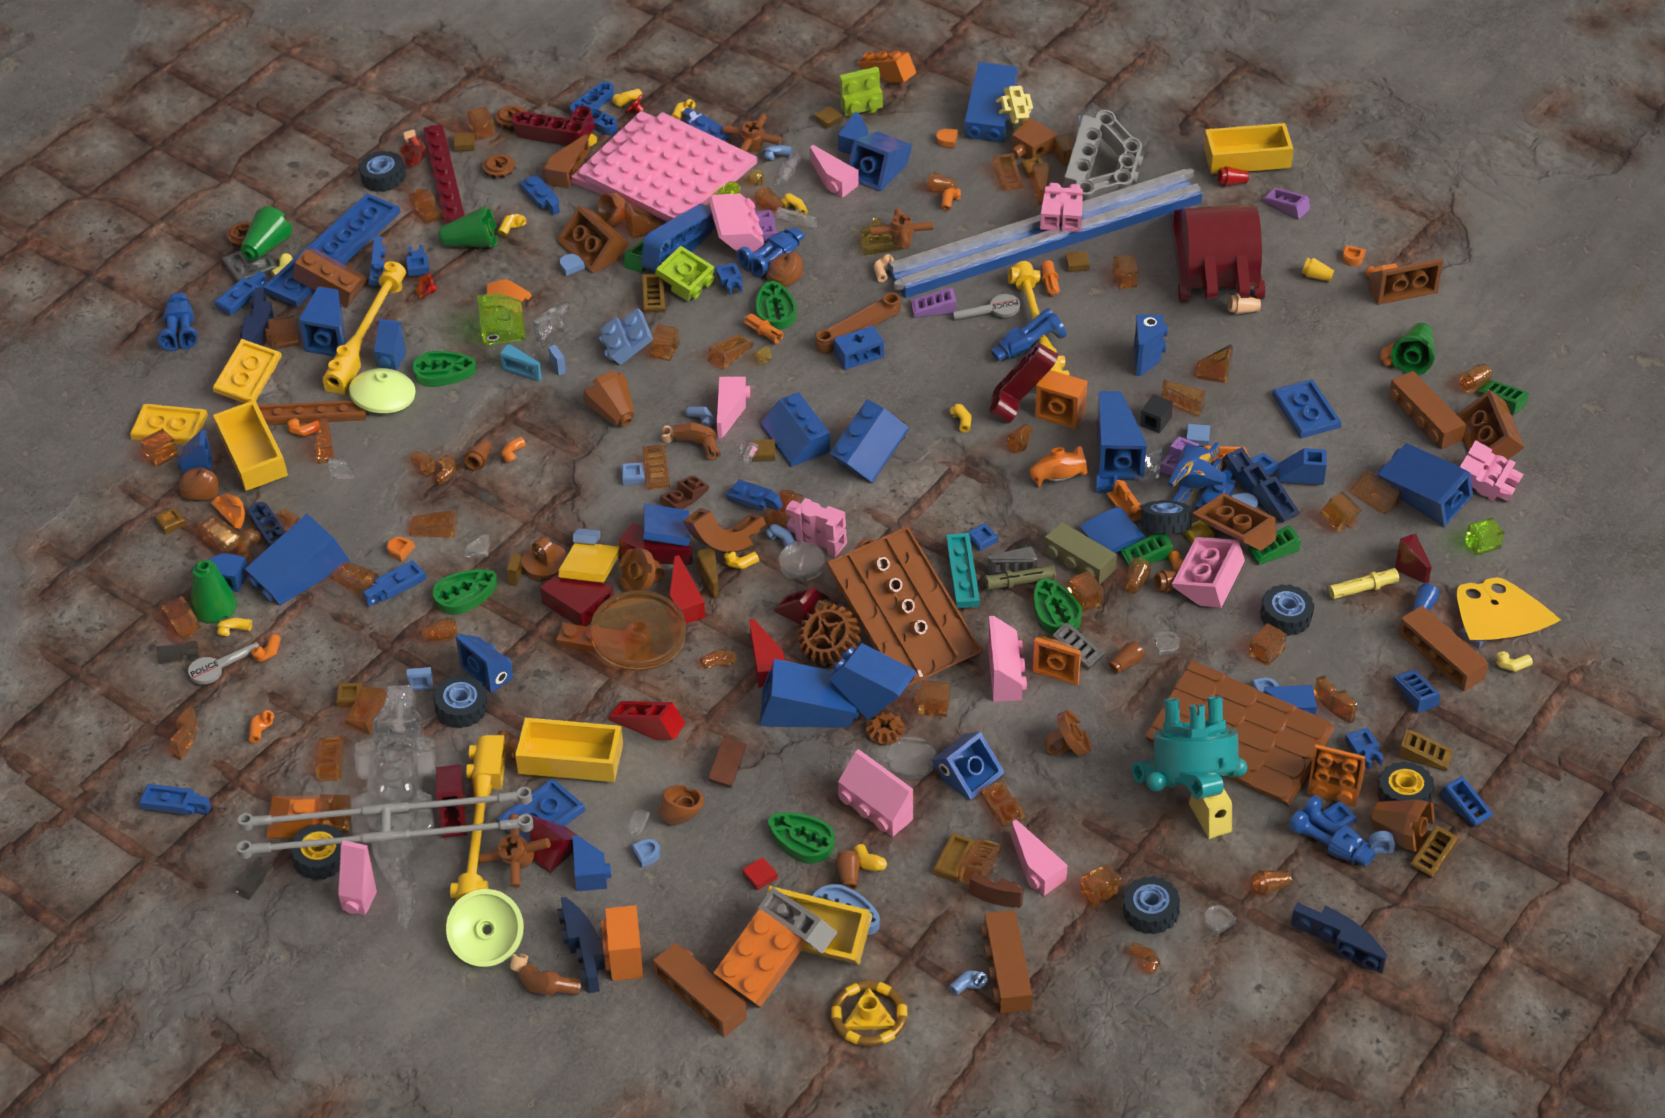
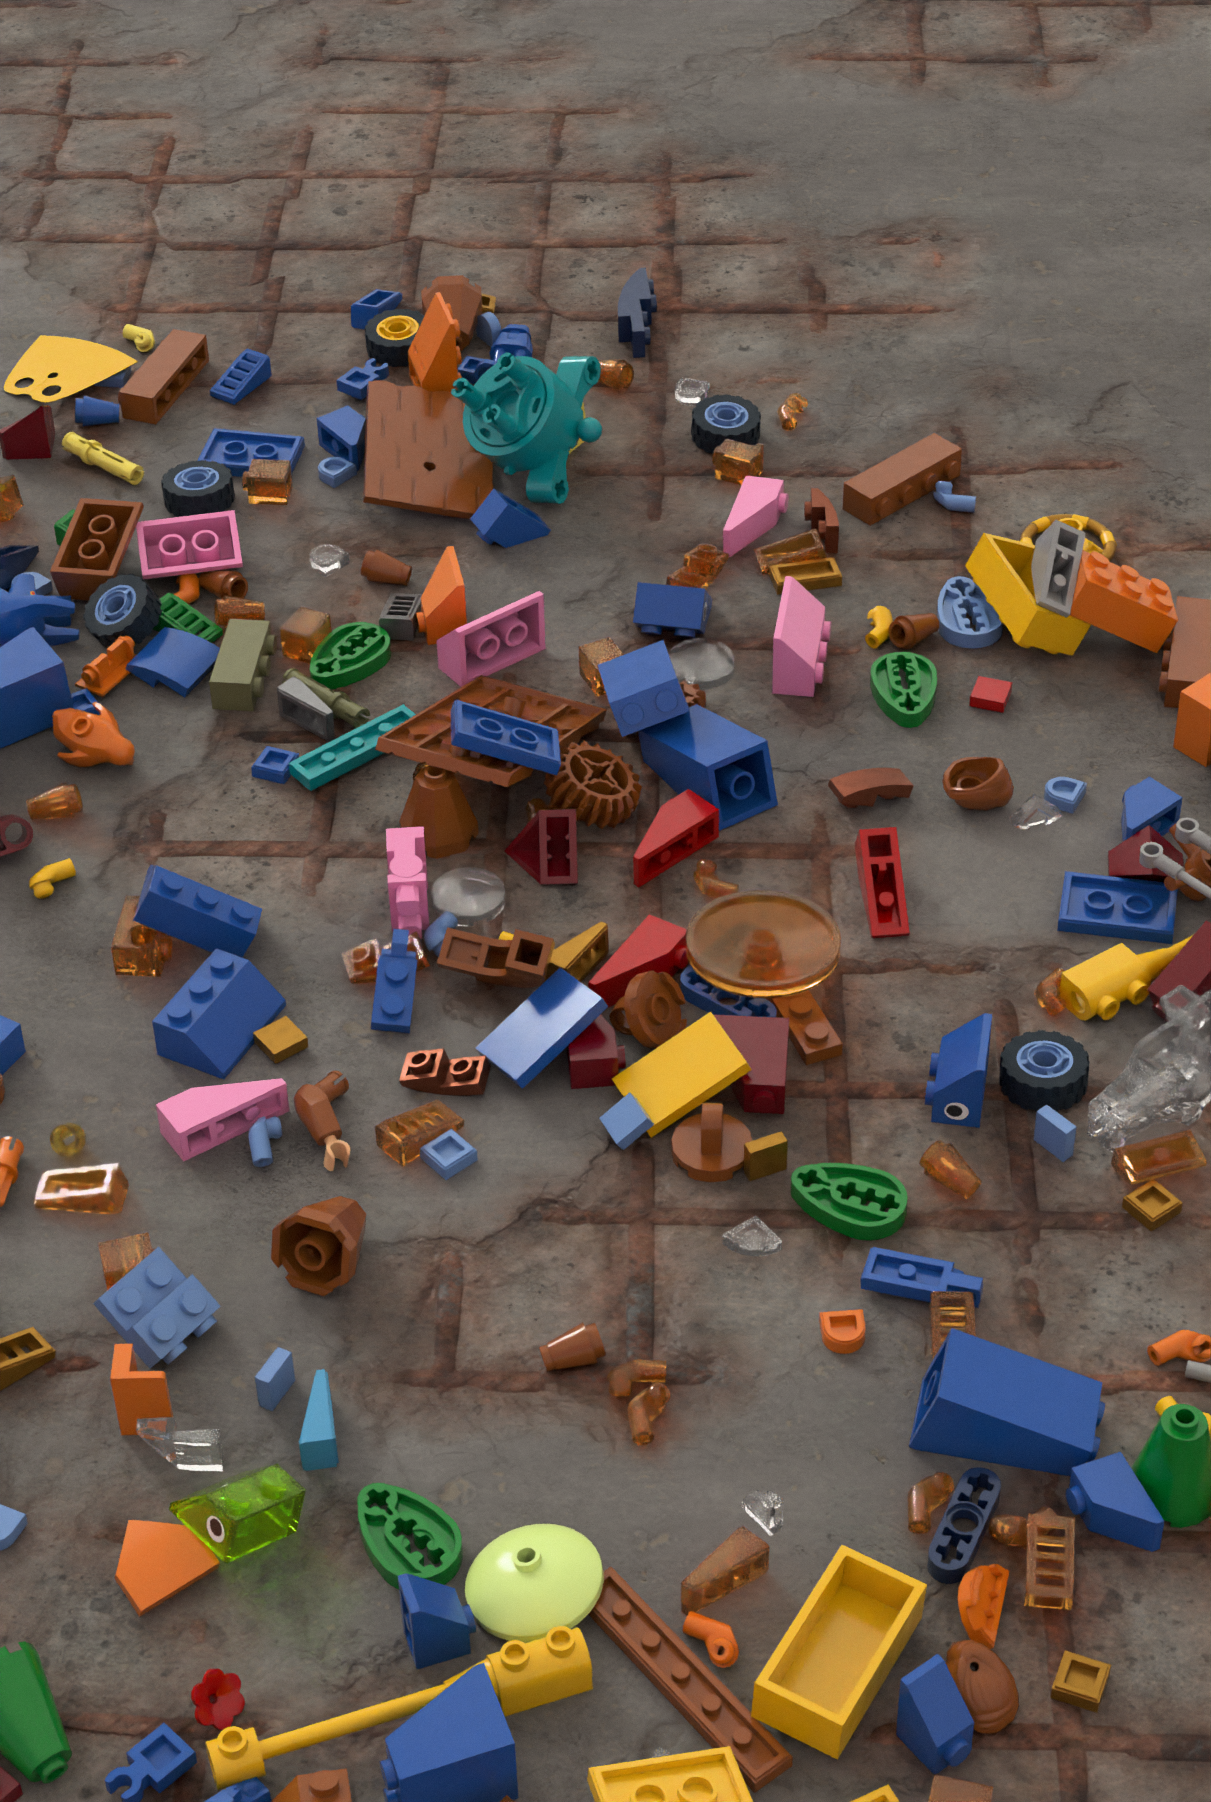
camera: 125 degrees left, 5 degrees down
(445, 526) = (753, 1287): clear orange slope -> none
(510, 447) = (524, 1323): orange arm -> none
(569, 749) = (1012, 910): yellow piece -> none
(583, 308) = (137, 1392): none -> orange panel
(747, 451) = (303, 1047): clear tile -> none
(863, 577) = (505, 737): none -> blue tile
(1069, 735) = (561, 550): dark orange tile -> none
(1125, 737) = (507, 521): none -> blue slope
(1318, 655) = (238, 448): none -> blue tile
(1336, 702) = (314, 406): clear orange slope -> none
(1414, 741) = (329, 351): pearl gold slope -> none

